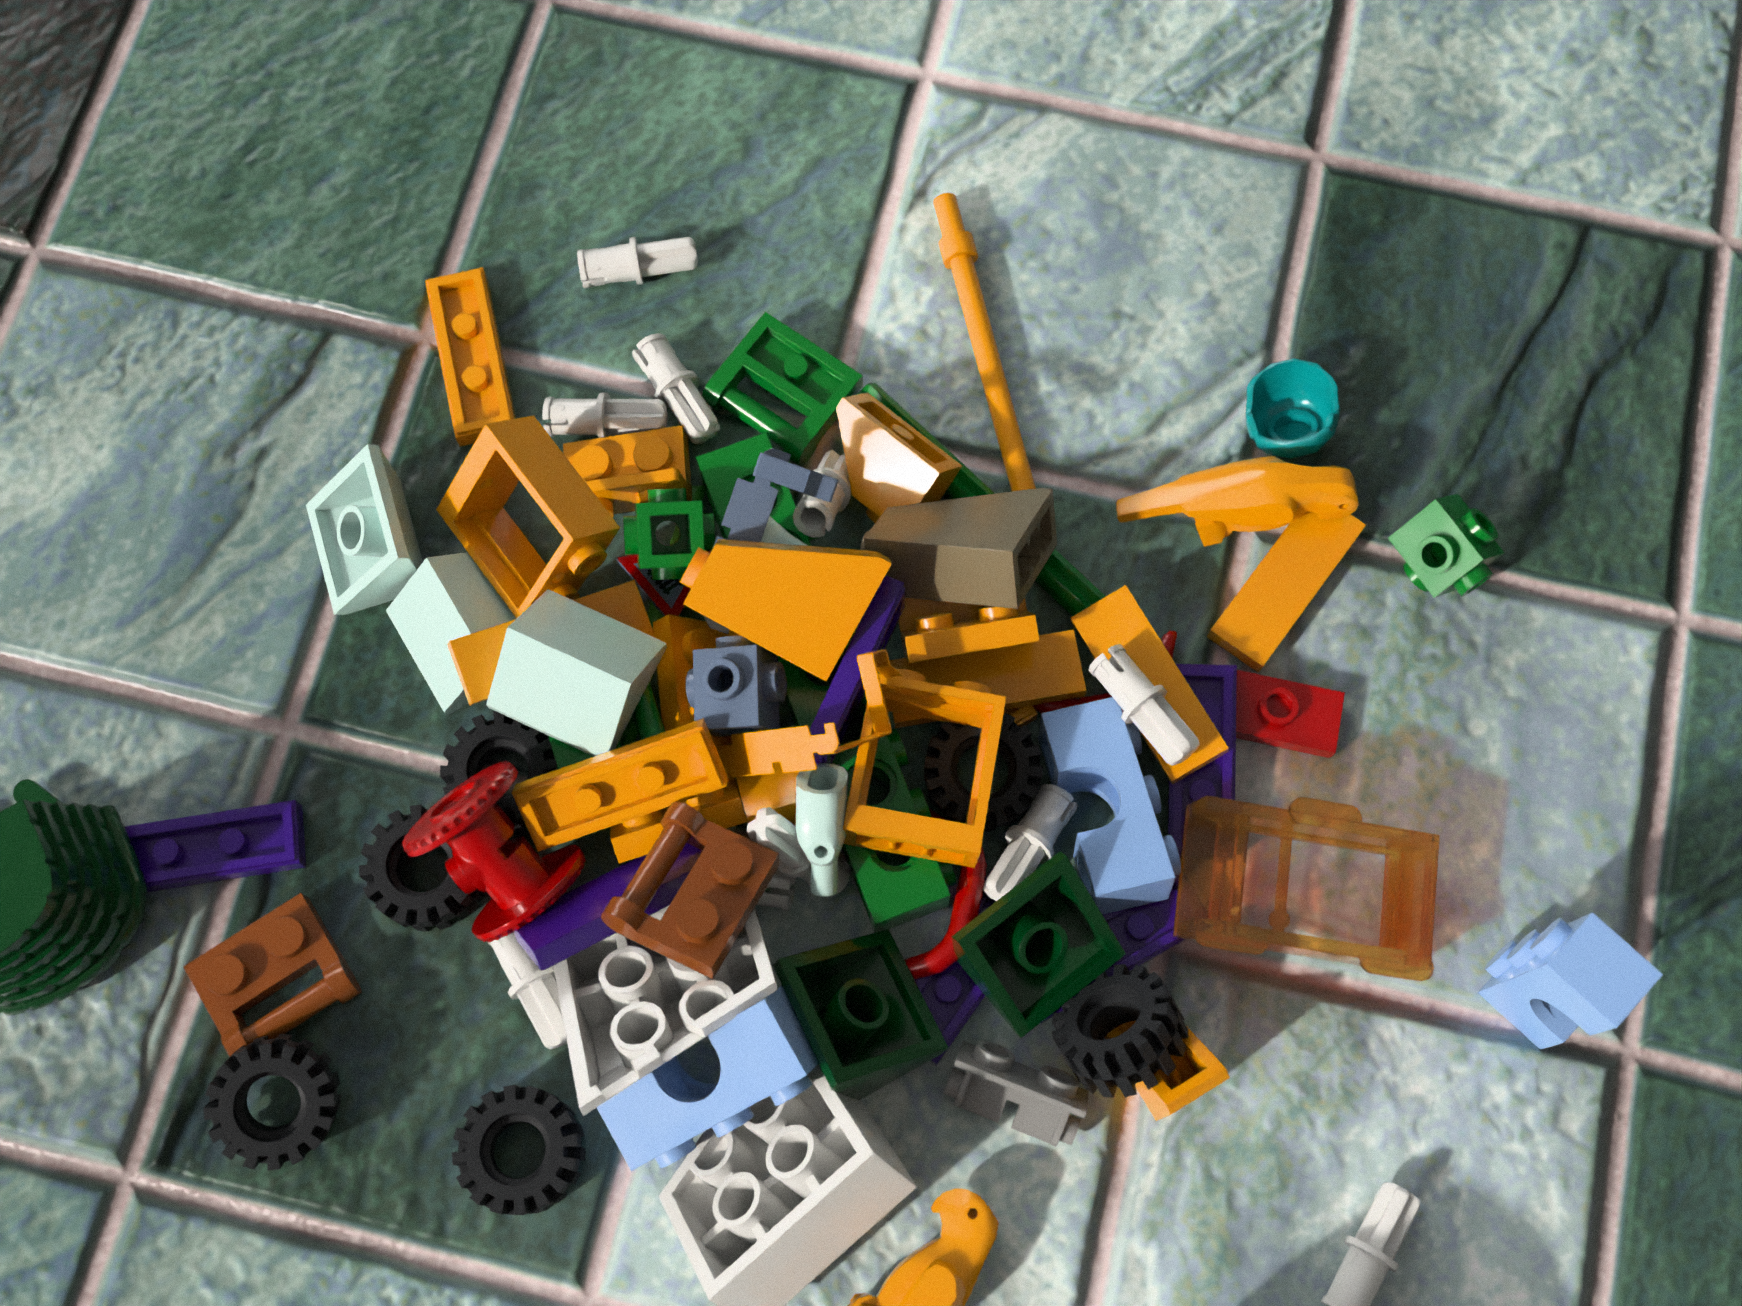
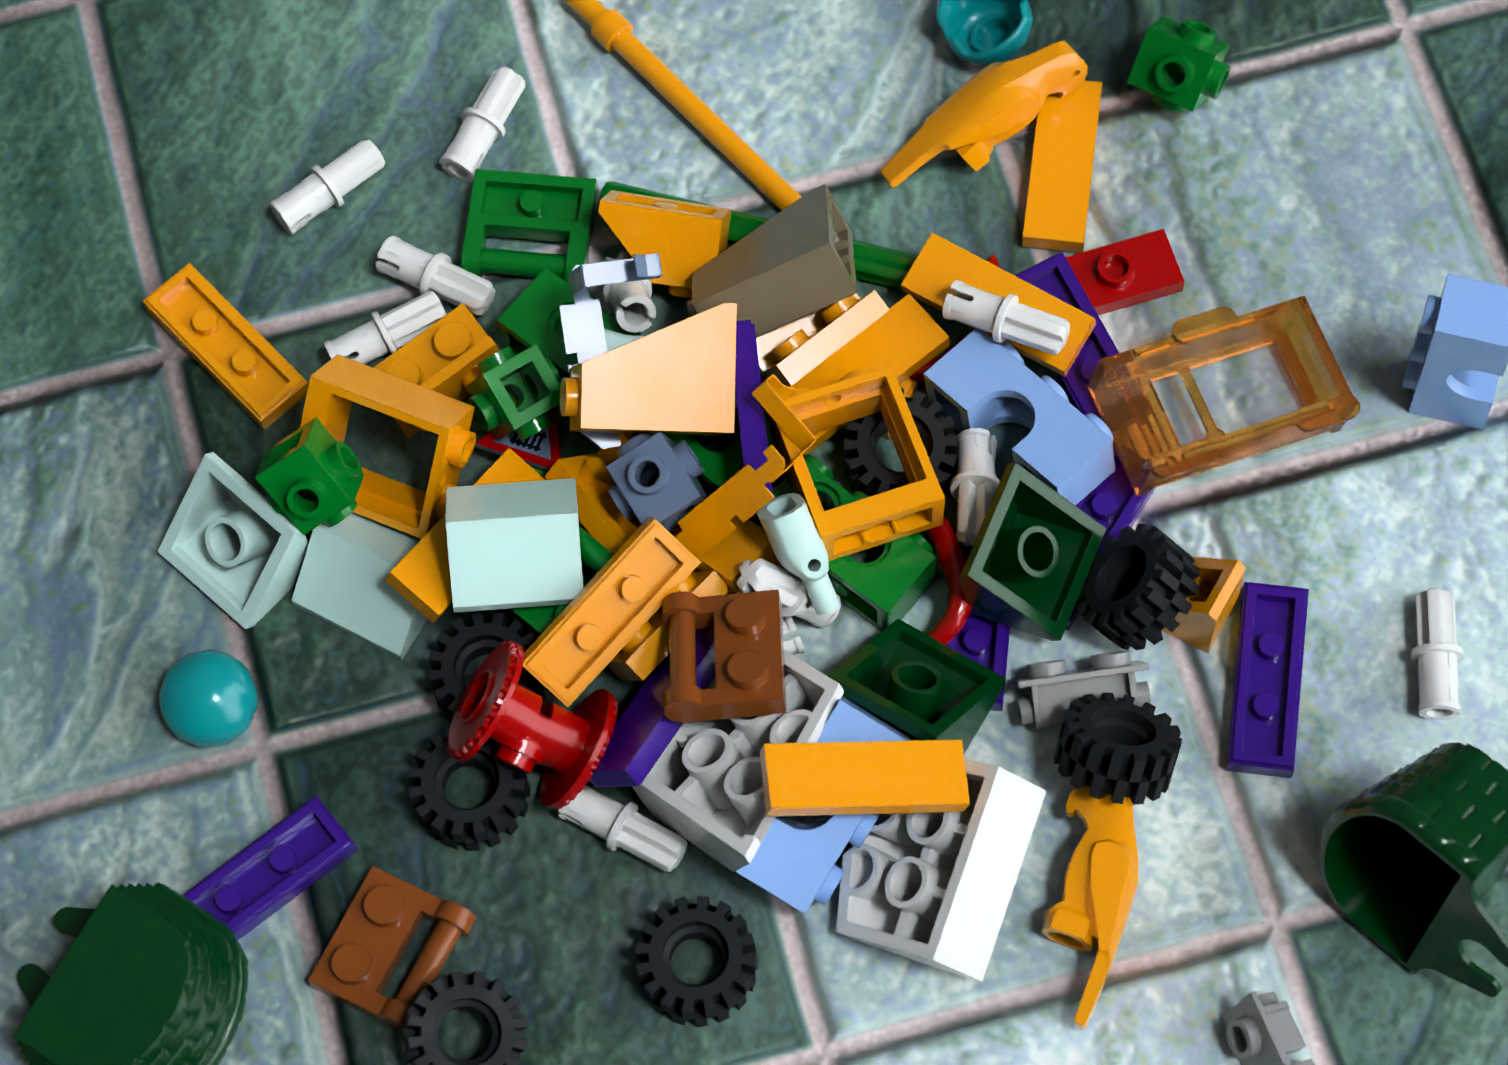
camera: 25 degrees left, 5 degrees down
(262, 659) = (208, 698): none -> teal hair
(439, 515) = (311, 477): none -> green brick
(739, 1092) = (864, 777): none -> light orange tile
(799, 275) = (482, 124): none -> white axle
(987, 1195) = (1117, 748): none -> black tyre
(1196, 1182) = (1267, 680): none -> dark purple tile

